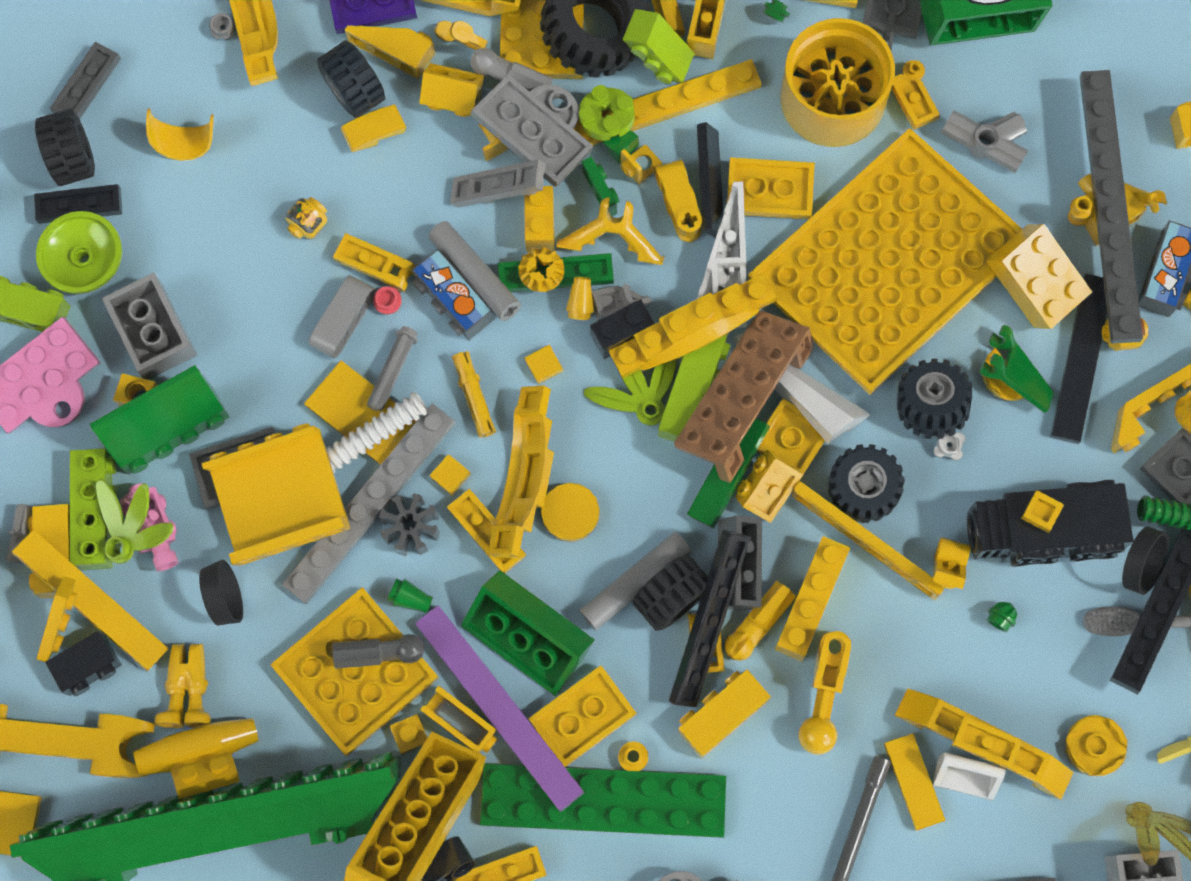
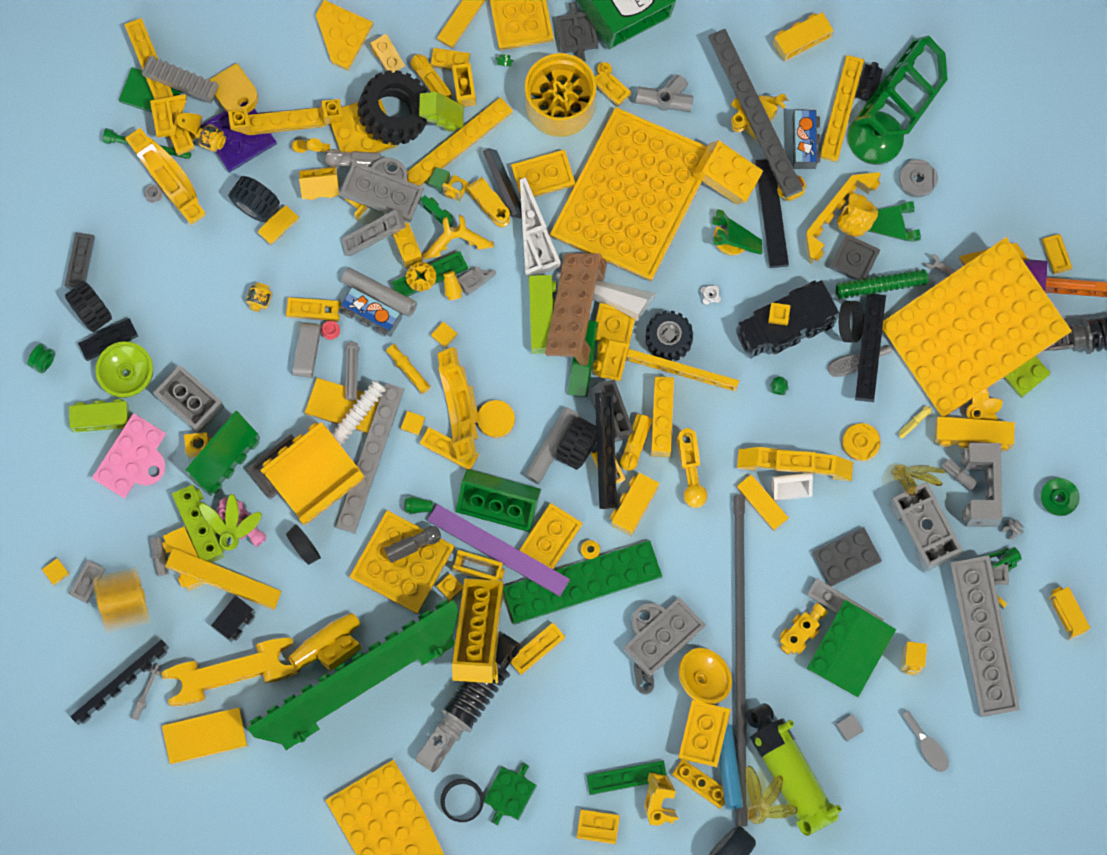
camera: 25 degrees left, 0 degrees up
(58, 619) = (209, 597): yellow plate -> none
(177, 141) = (159, 276): yellow piece -> none
(184, 678) = (300, 604): yellow piece -> none
(396, 46) = (273, 167): yellow slope -> none
(399, 530) = (393, 463): dark grey gear -> none
(606, 99) = (430, 170): lime plate -> none
(620, 327) = (485, 295): black brick -> none
(641, 396) = (512, 331): lime plant -> none
(693, 326) = (528, 278): yellow piece -> none
(934, 398) = (691, 270): black wheel -> none
(950, 563) = (737, 365): yellow plate -> none

